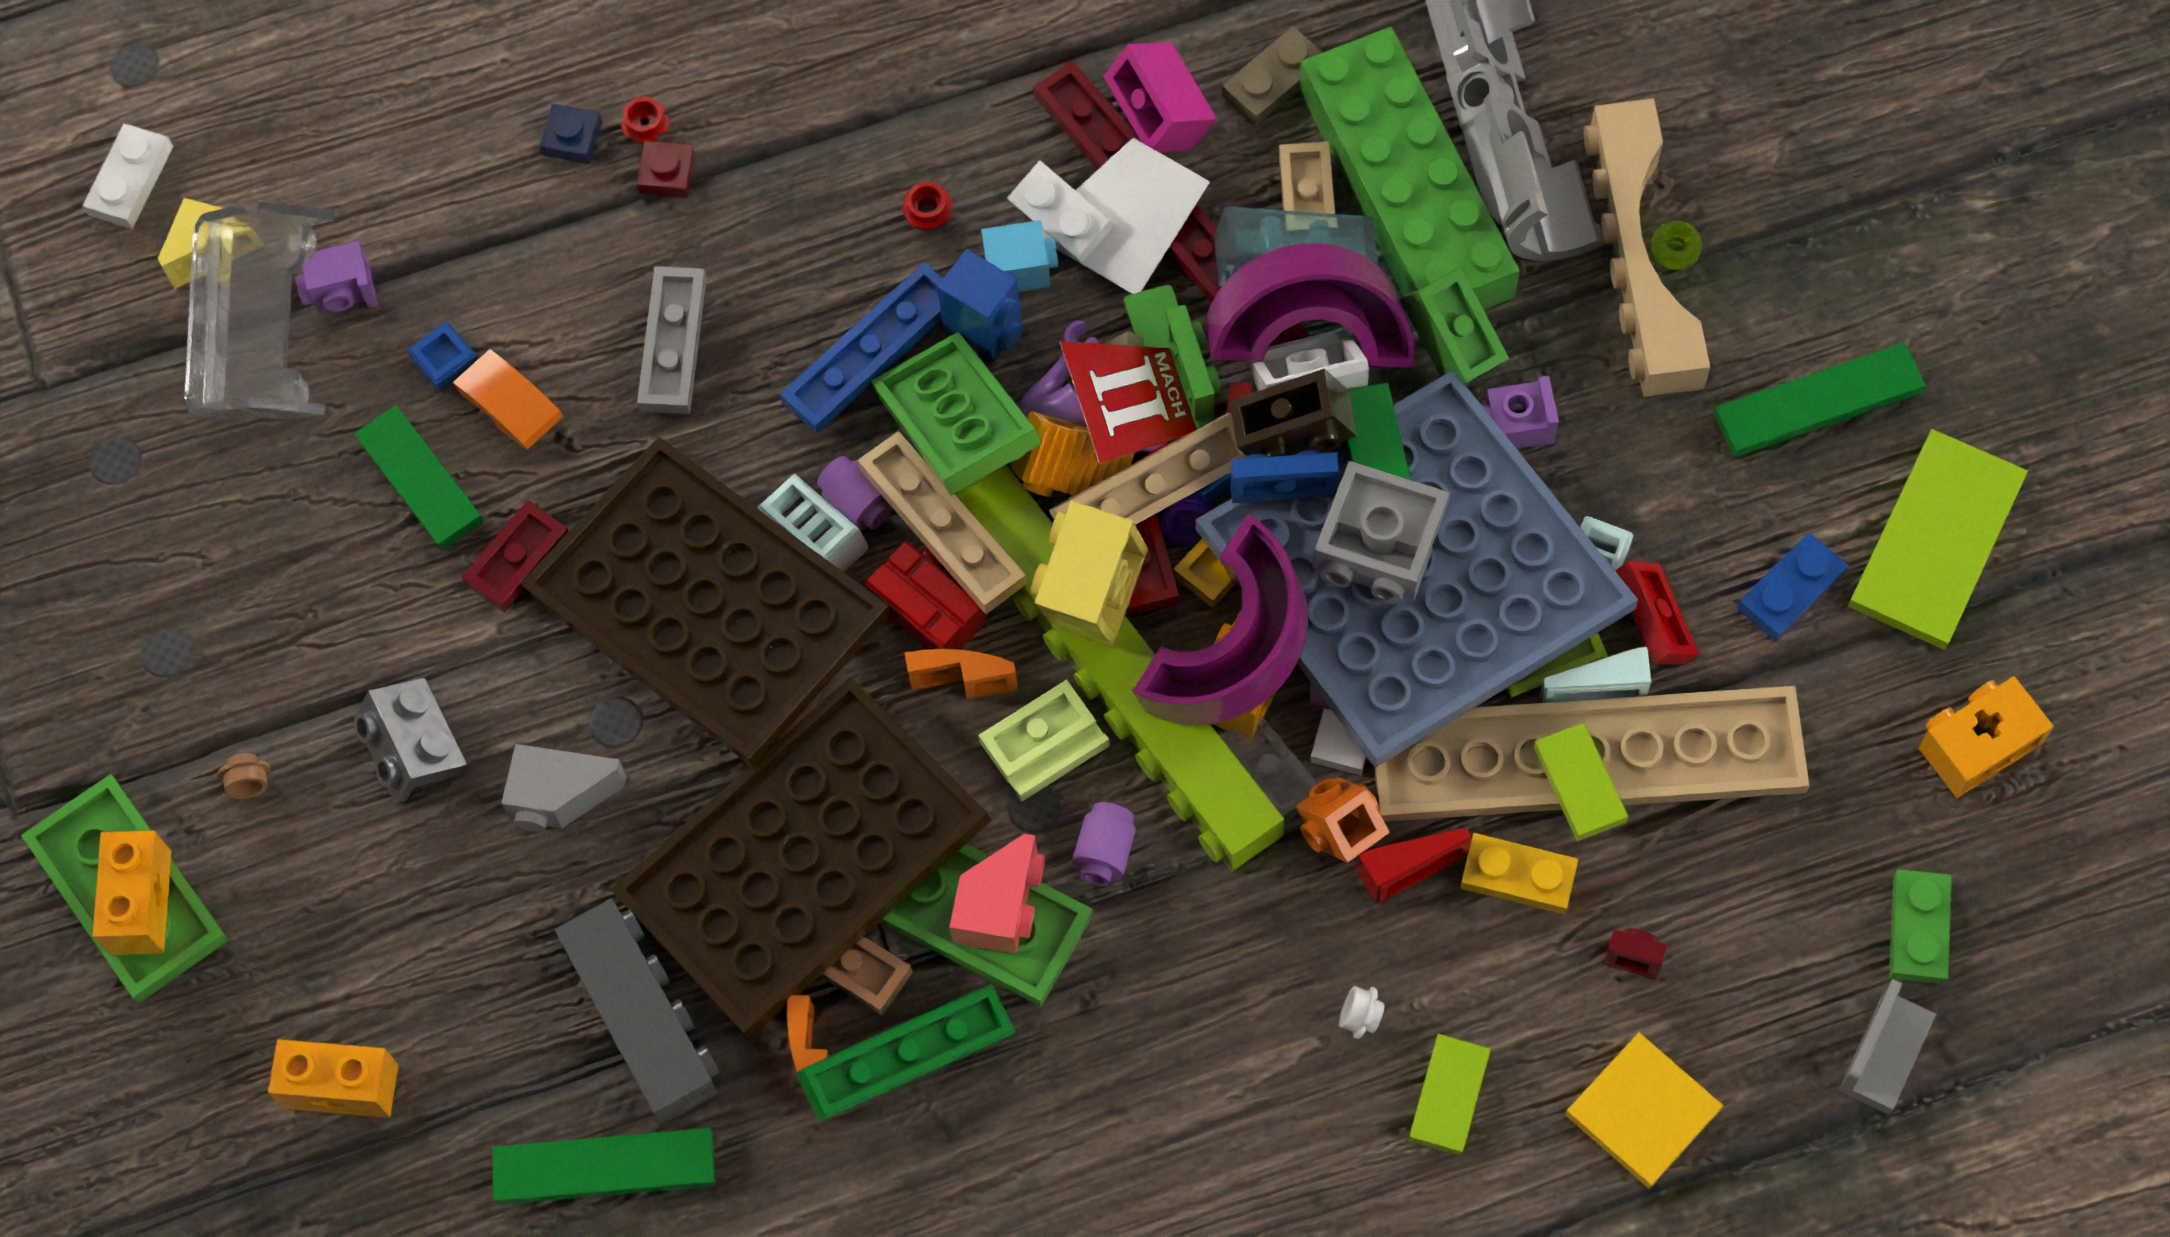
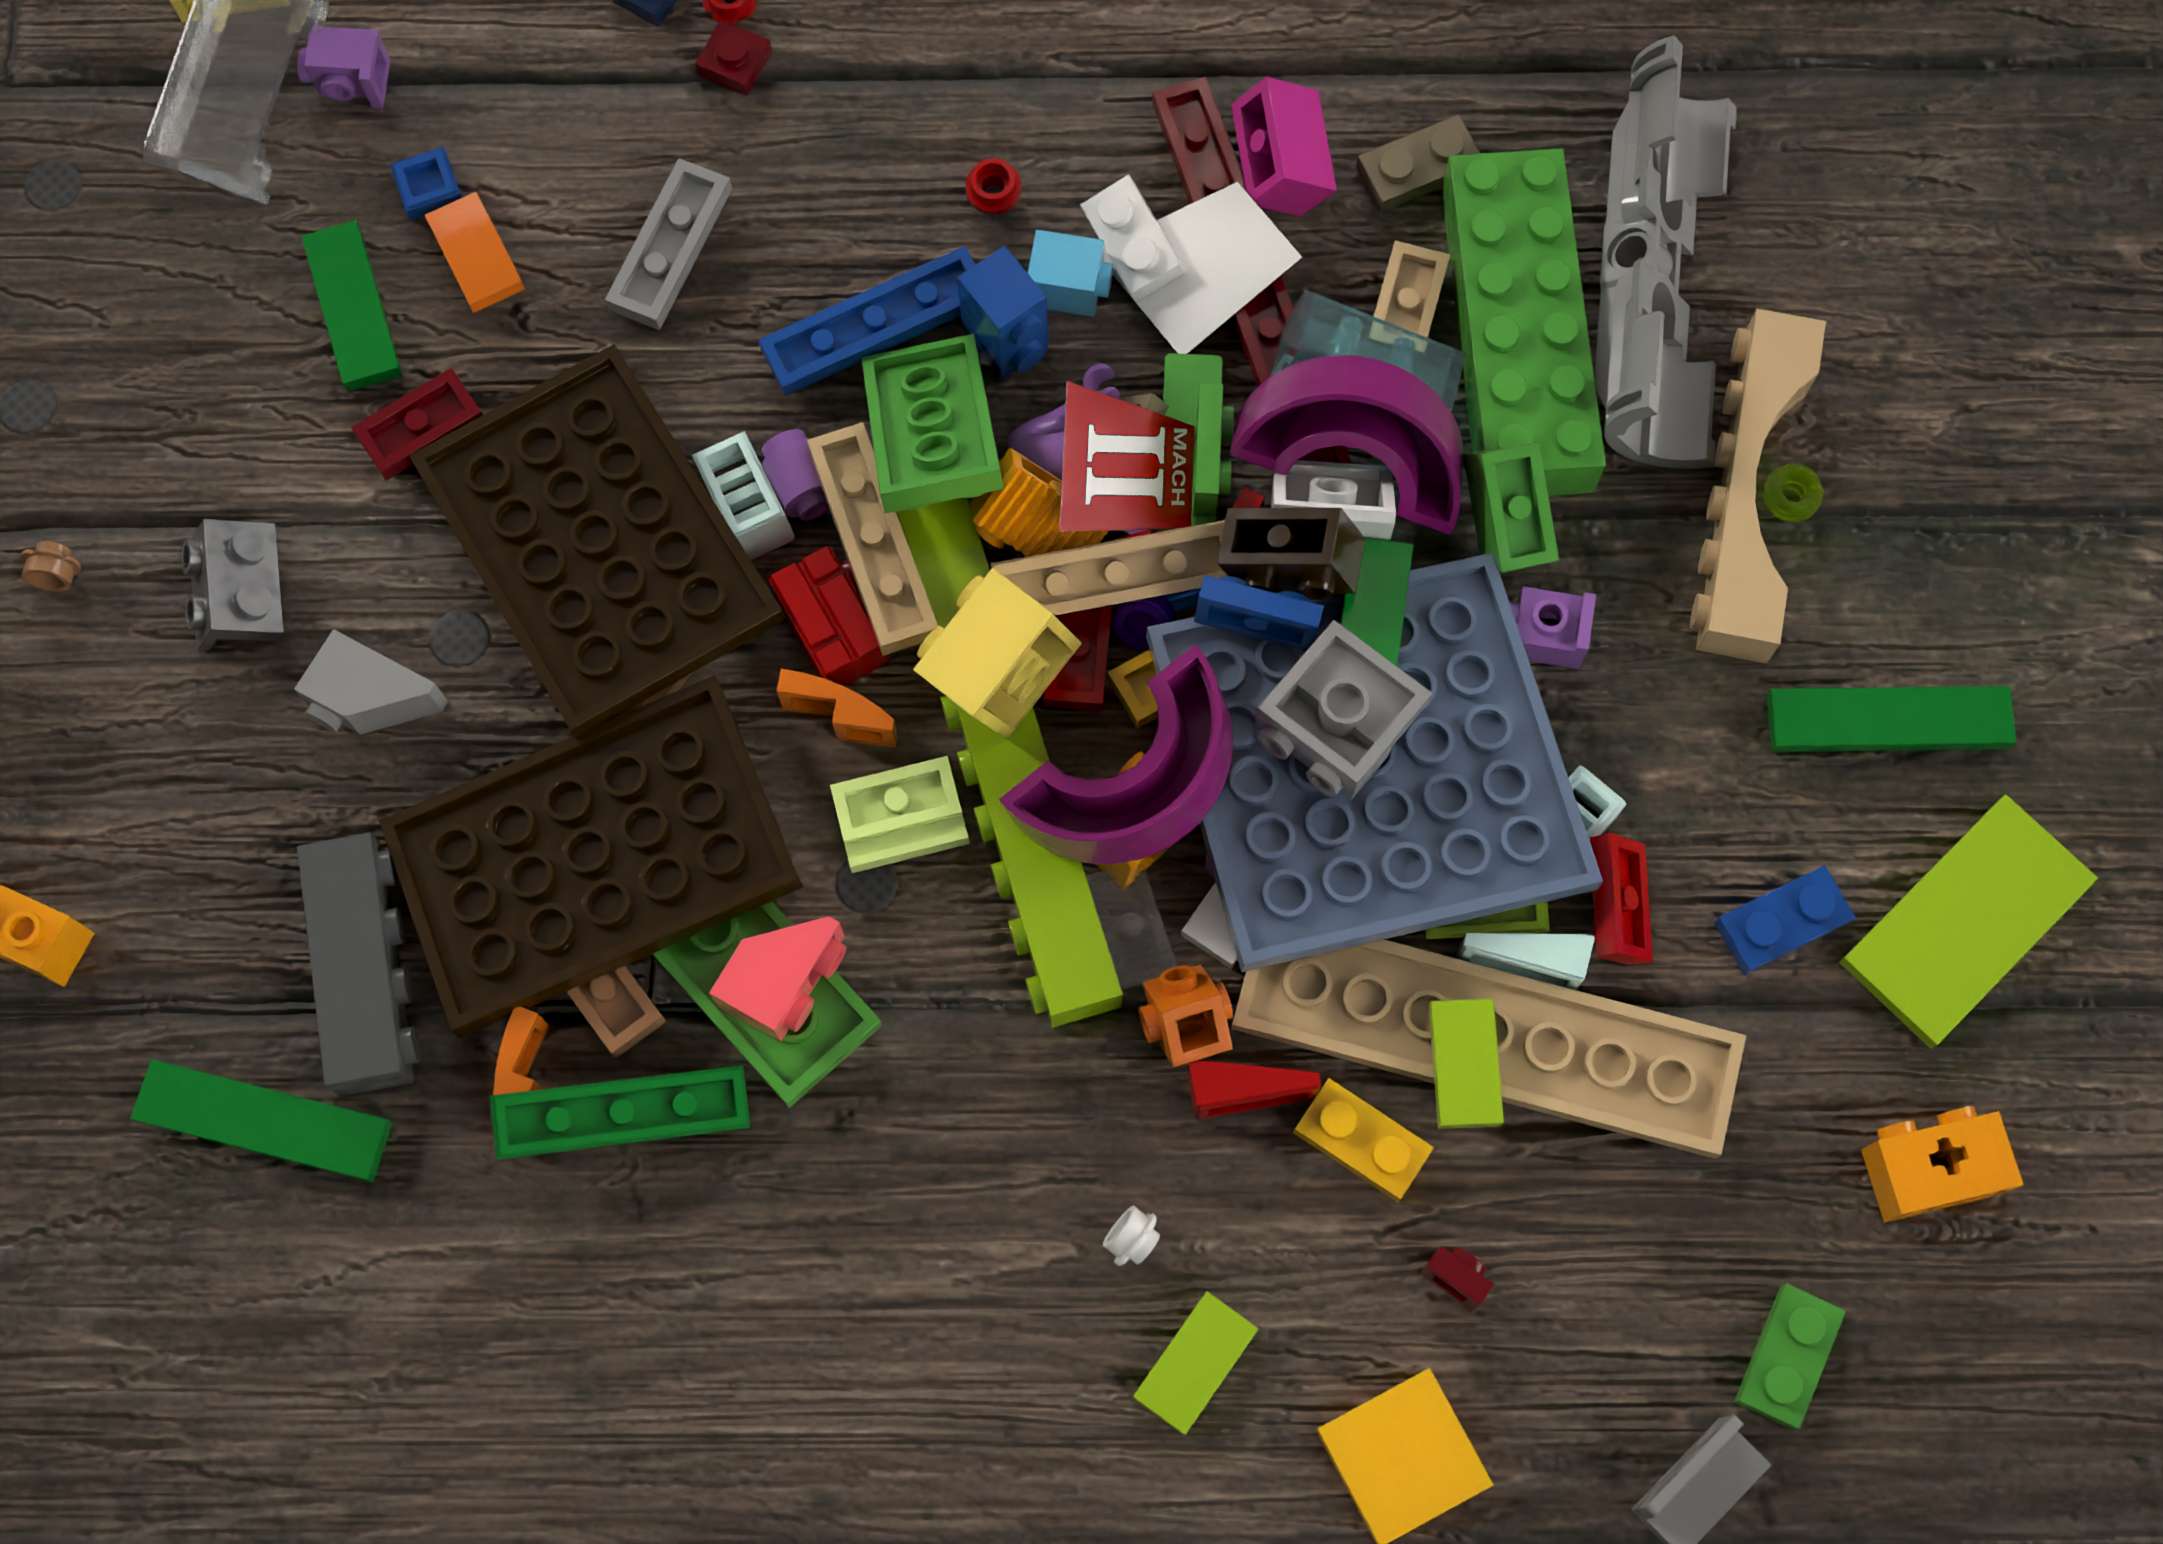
camera: 15 degrees right, 5 degrees up
(1104, 844) = (921, 952): medium lavender brick -> none

